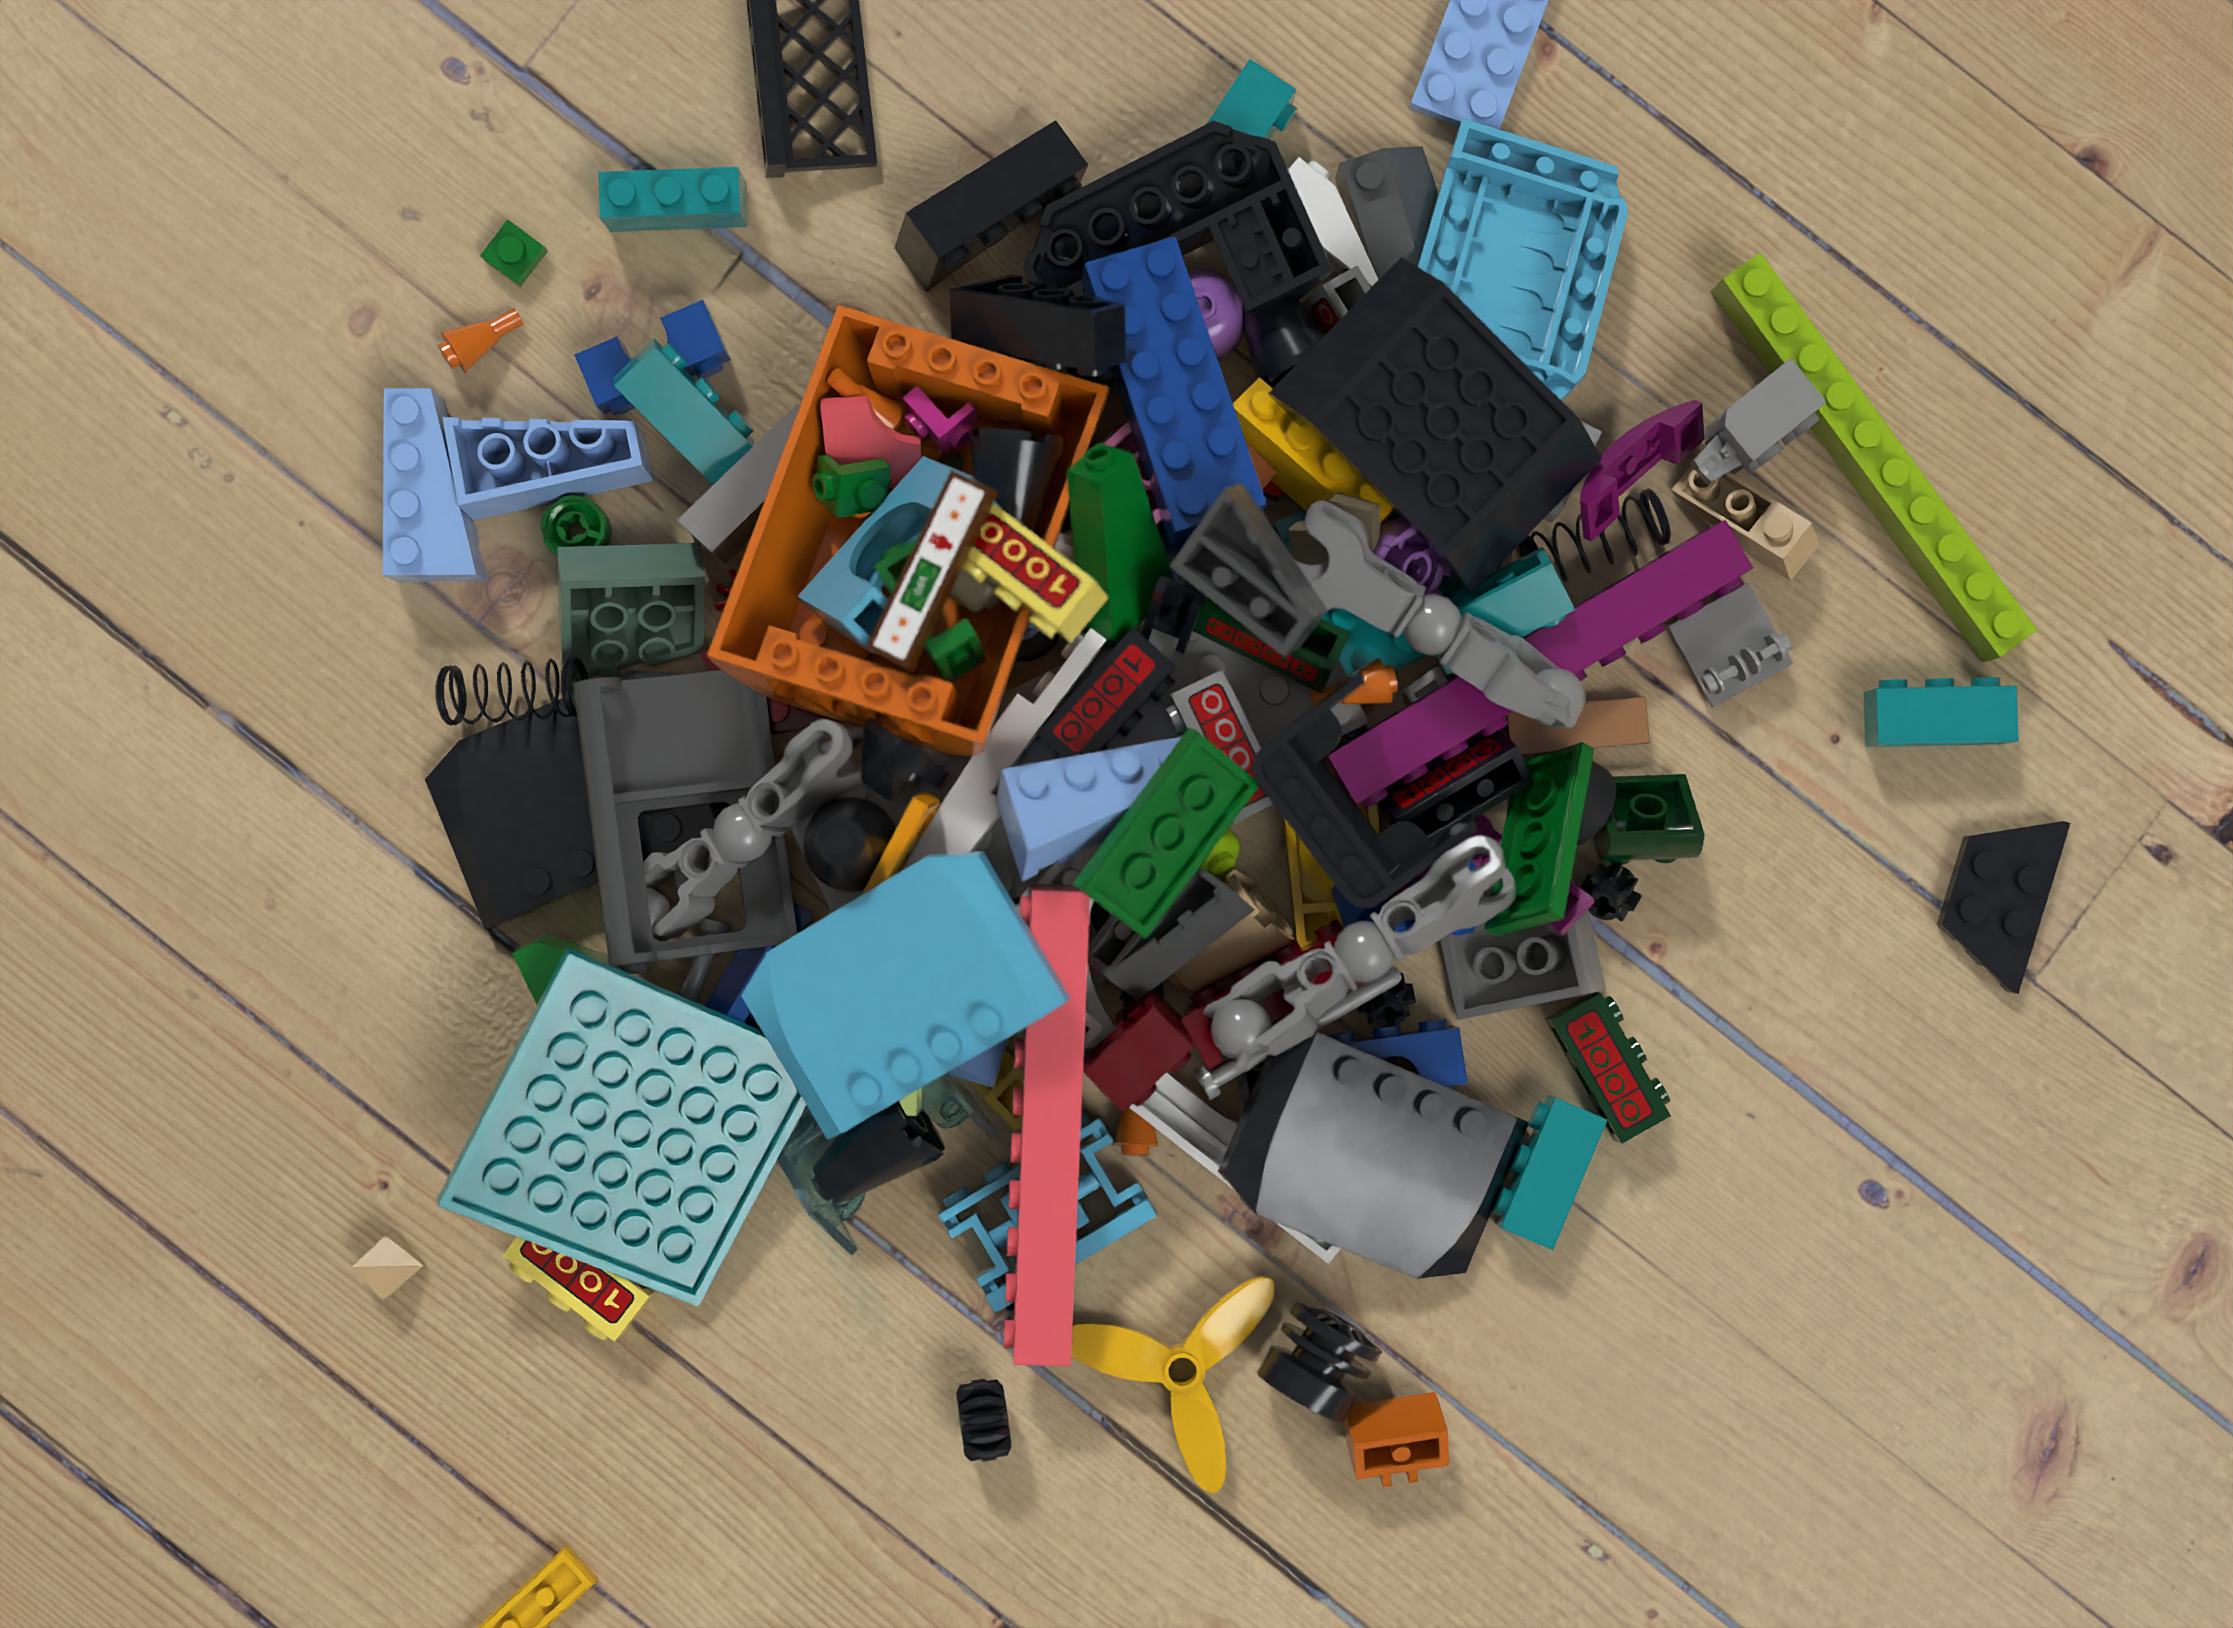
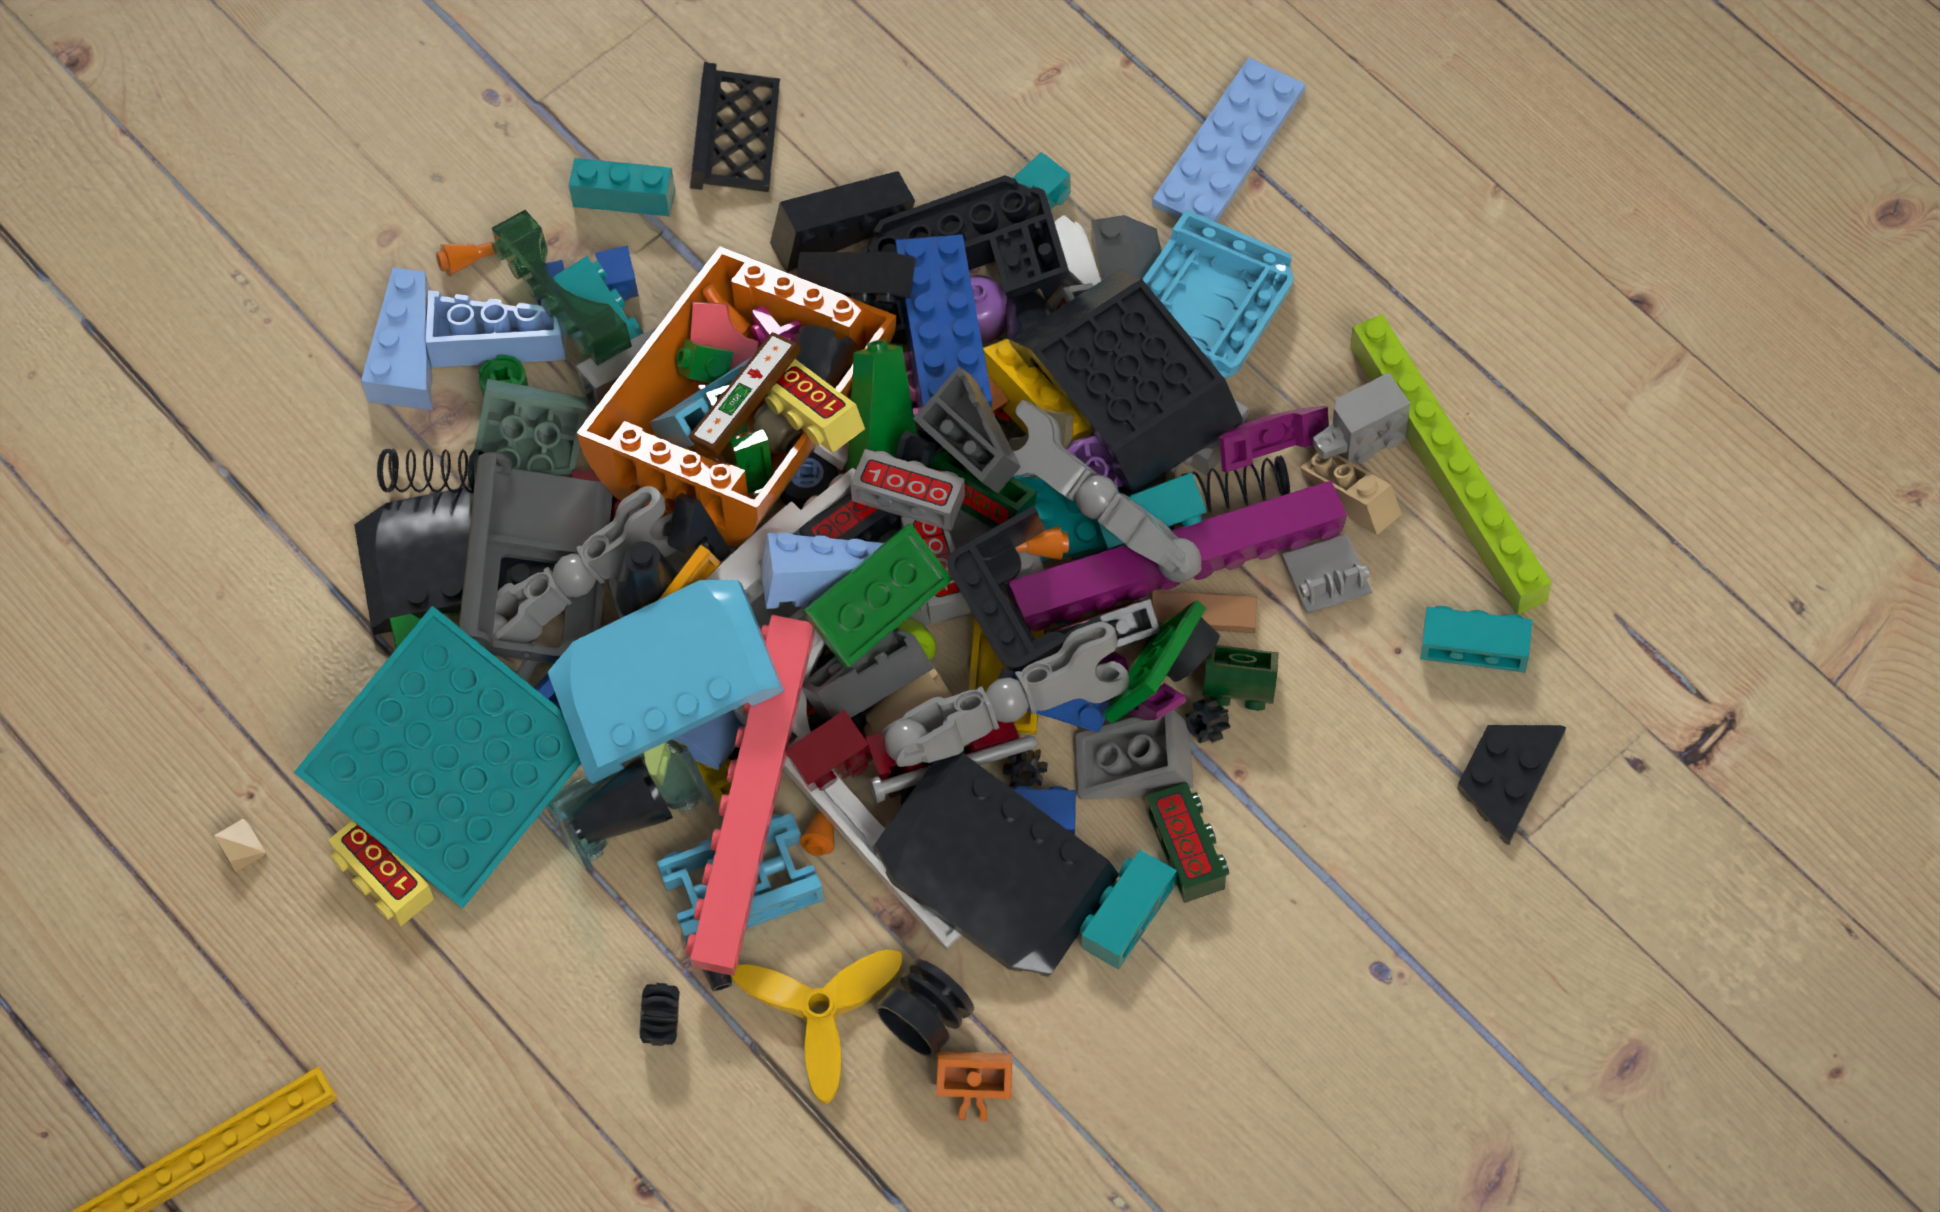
camera: 15 degrees right, 25 degrees down
(514, 253) = (501, 206): green plate -> none
(688, 456) = (593, 325): none -> clear green arch
(1177, 658) = (908, 489): none -> light grey brick

